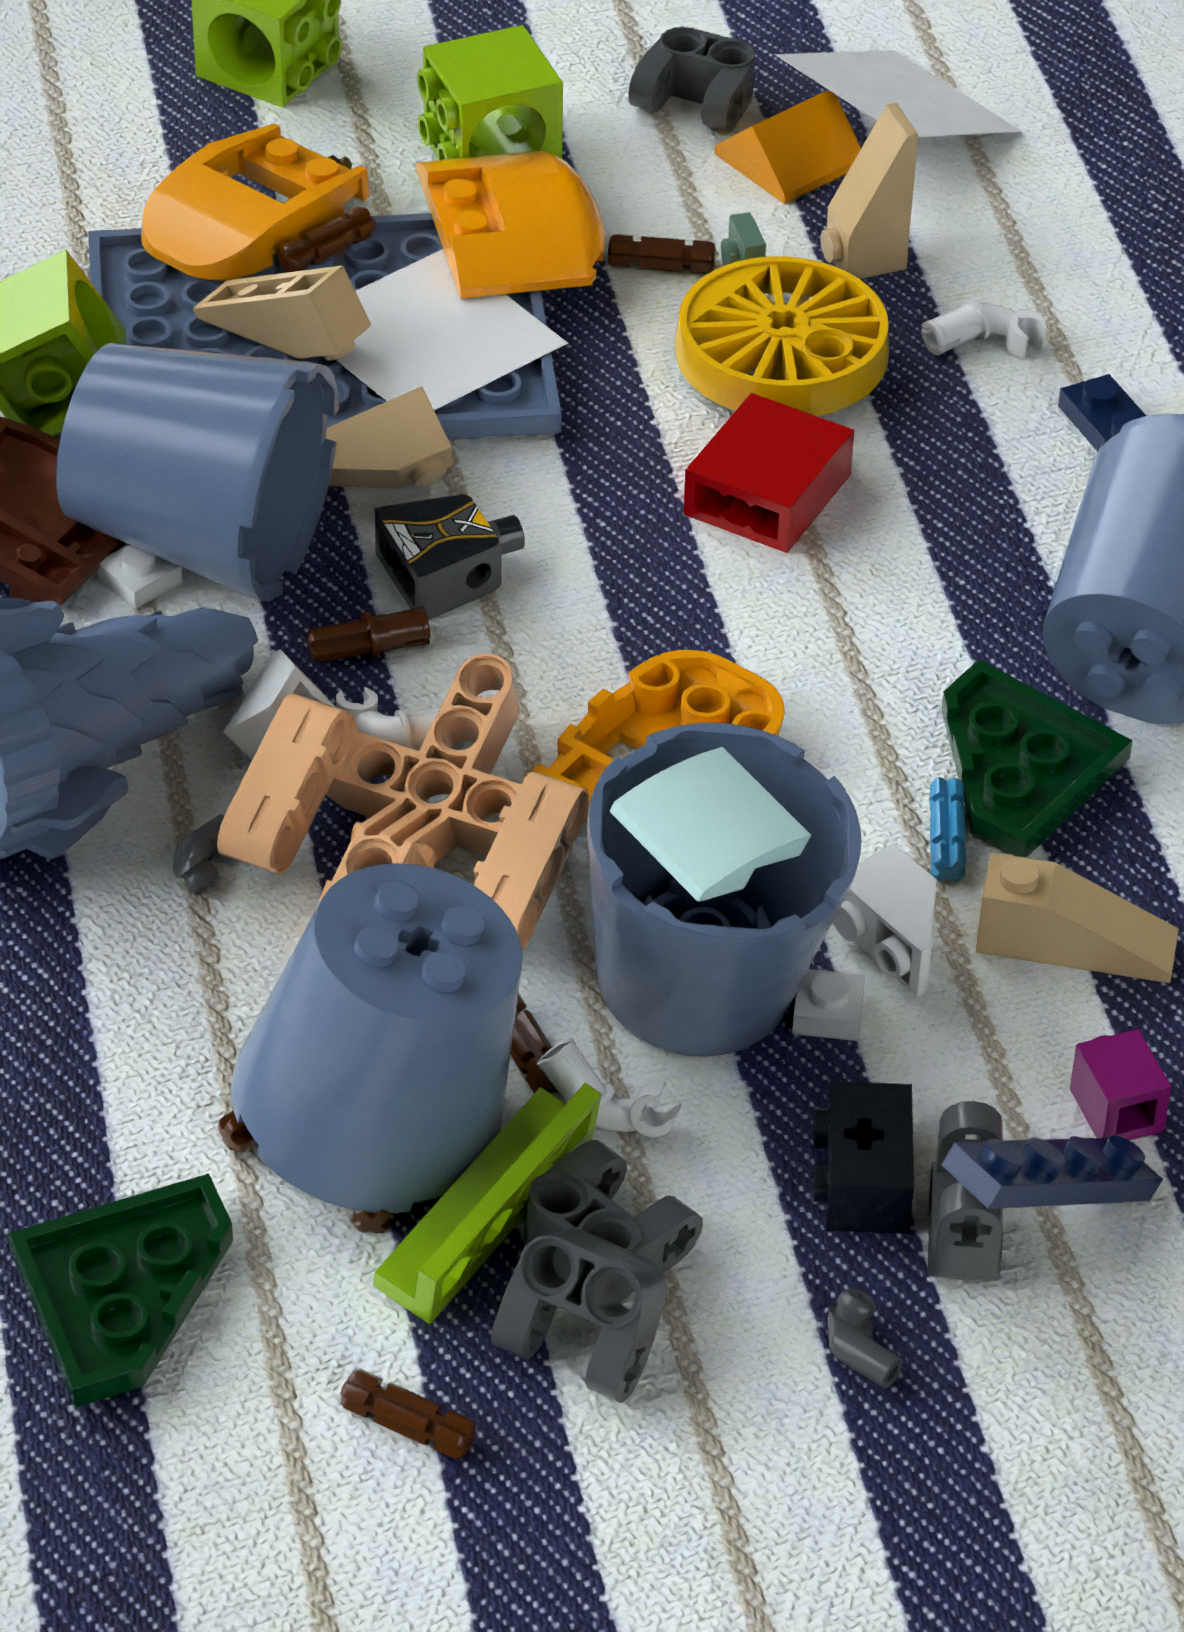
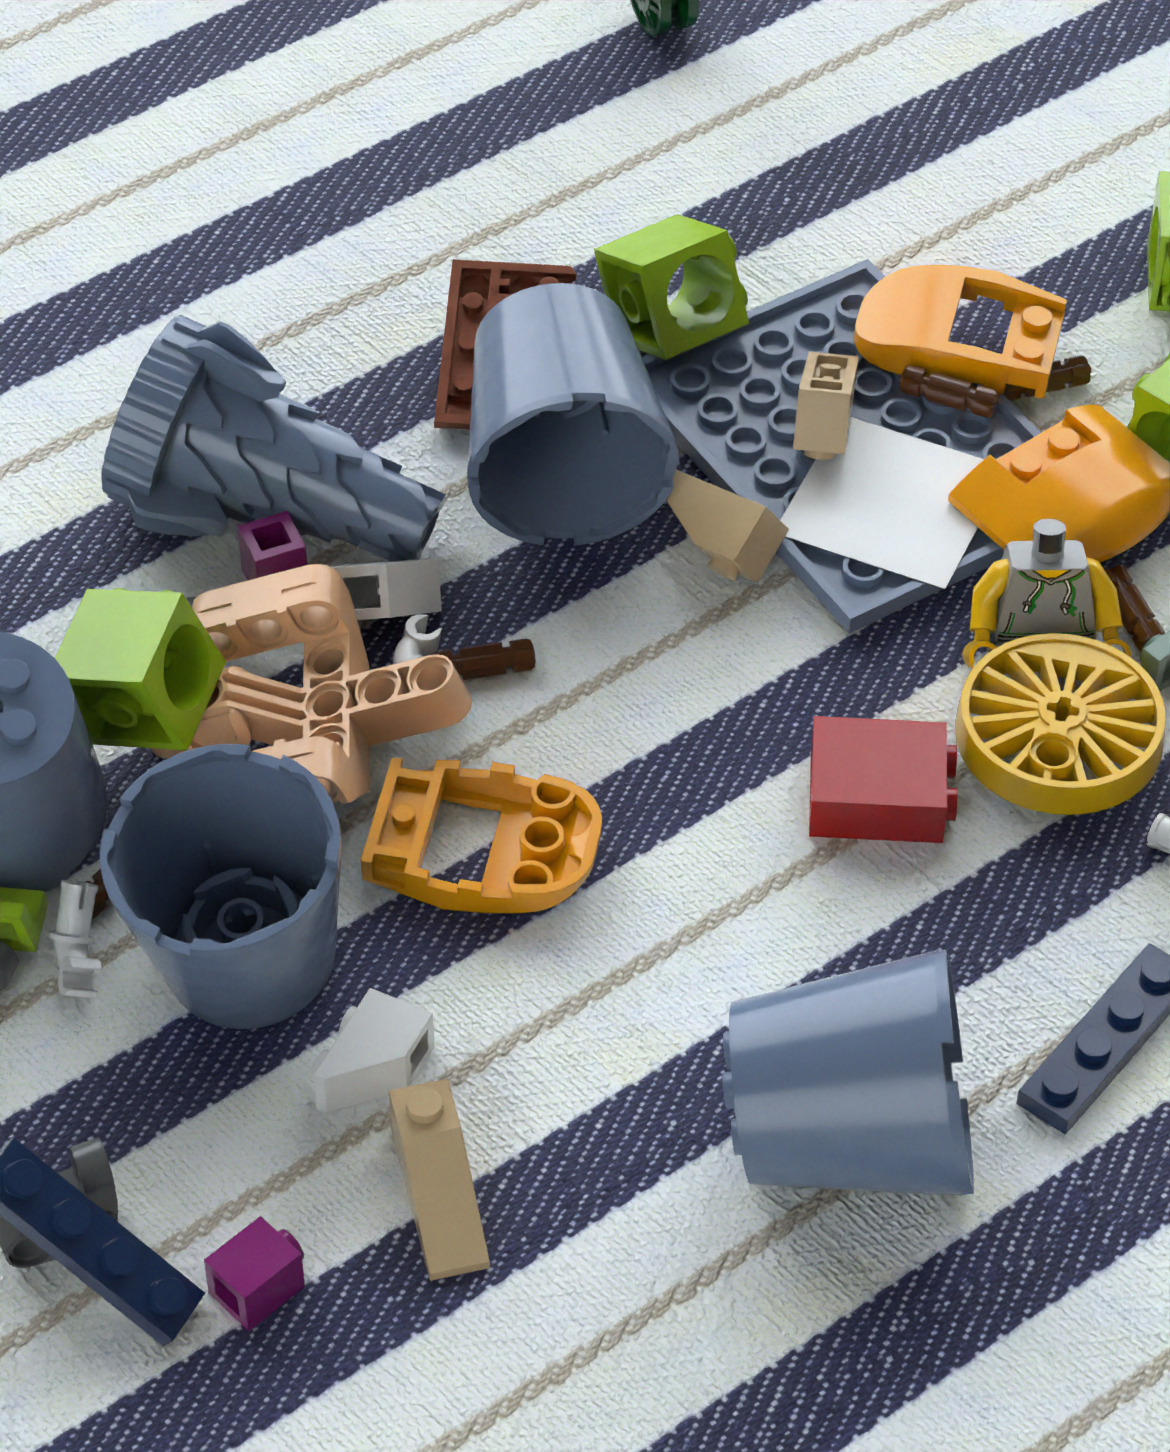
camera: 65 degrees right, 5 degrees up
(182, 768) = (270, 546): none -> magenta brick
(313, 842) = (140, 667): none -> lime brick
(369, 635) = (514, 611): reddish brown axle -> none
(420, 675) = (492, 658): none -> reddish brown axle
(443, 550) = (631, 614): torso -> none
(630, 284) = (1043, 590): none -> torso
(709, 823) = (197, 827): light aqua slope -> none
(829, 1005) = (265, 1050): white plate -> none
(867, 1157) = (105, 1108): black brick -> none
(947, 829) = (514, 1057): dark azure axle -> none
(1023, 757) = (628, 1078): dark green plate -> none

